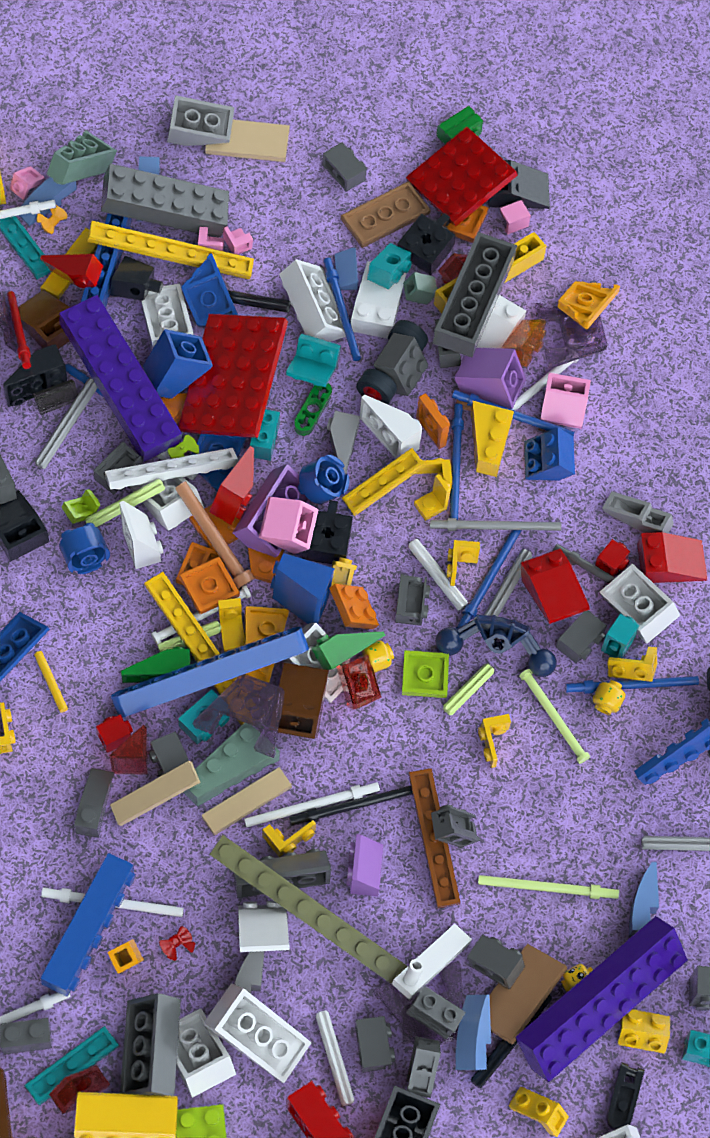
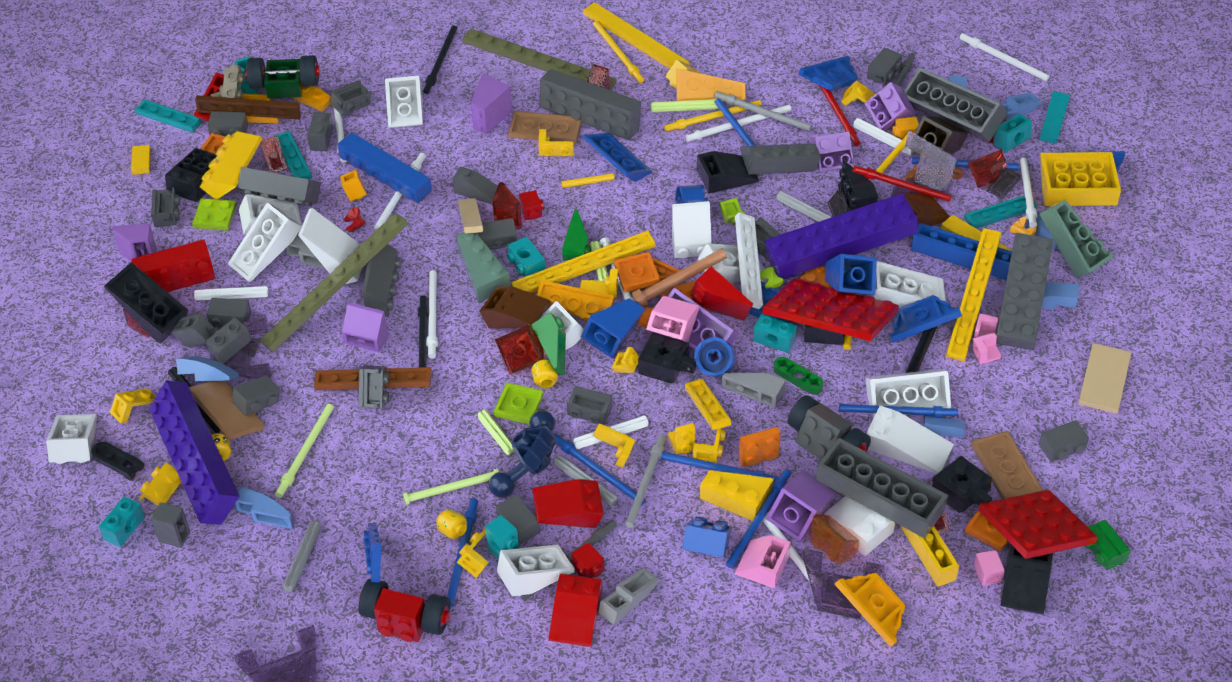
camera: 110 degrees right, 15 degrees down
(78, 269) = (955, 221): red slope -> none
(133, 499) = (725, 232): yellowish green axle -> none
(134, 280) = (948, 268): black torso -> none
(199, 122) = (1121, 335): light grey slope -> none
(209, 672) = (555, 255): beam -> none
(246, 801) = (450, 276): tan tile -> none
(252, 703) = (516, 275): clear purple wing -> none
(275, 838) = (407, 284): yellow bracket -> none
(314, 360) = (838, 376): teal bracket -> none
(354, 606) = (591, 361): orange plate -> none
(389, 266) = (937, 448): teal brick -> none
(391, 426) = (759, 412): white slope -> none
(420, 288) = (912, 466): sand green brick -> none
(431, 961) = (272, 354): white piece -> none
(496, 725) = (444, 432): yellow bracket -> none

